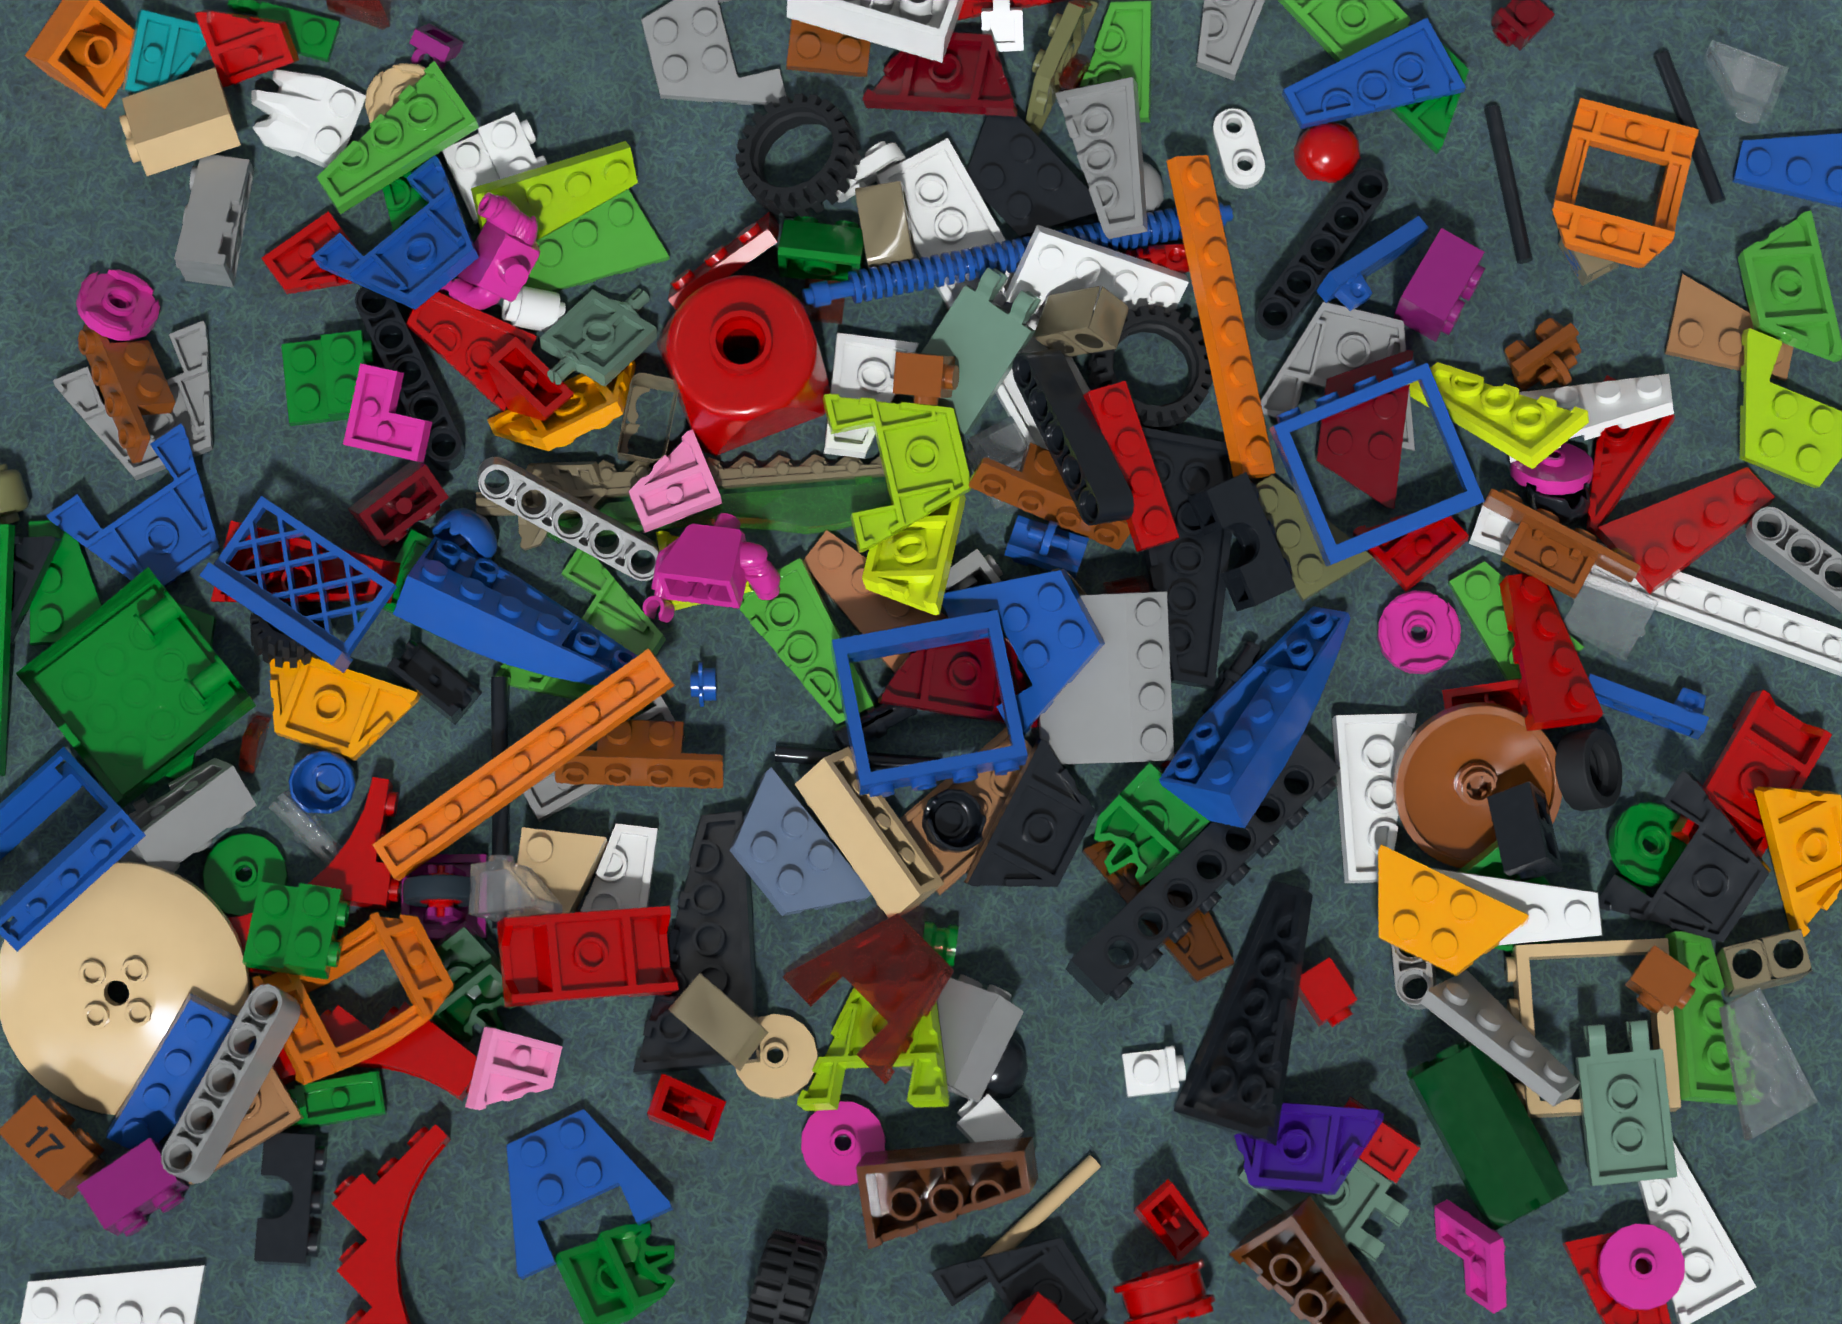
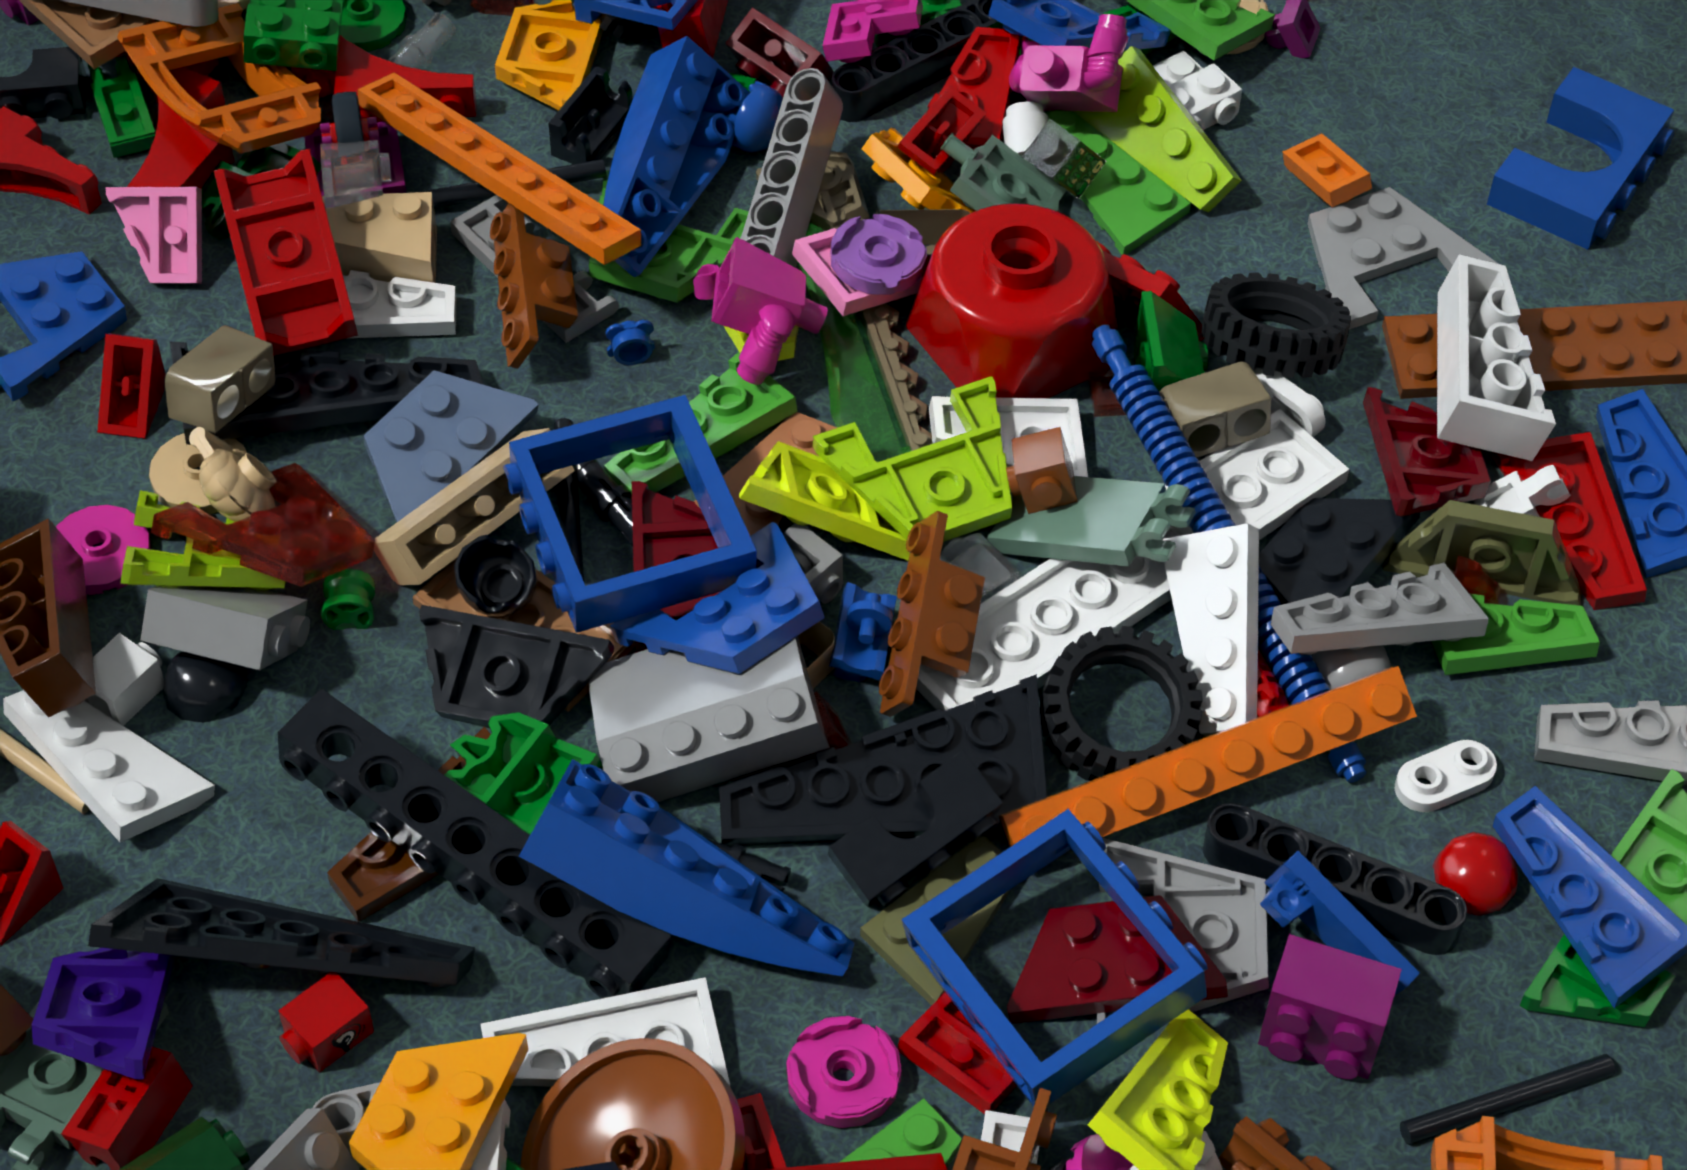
camera: 80 degrees right, 25 degrees down
(329, 769) = (465, 38): blue hair -> none
(578, 282) = (1064, 158): none -> clear smoke brick
(618, 66) = (1327, 170): none -> orange plate
(673, 460) = (878, 254): none -> medium lavender tile
(818, 1024) = (230, 482): none -> tan animal
(1072, 329) = (1151, 600): dark tan piece -> none
(1073, 437) = (998, 608): black beam -> none
(1073, 1137) = (110, 767): none -> white wing
(1118, 421) = (978, 679): red plate -> none
(1153, 1072) = (206, 849): white bracket -> none

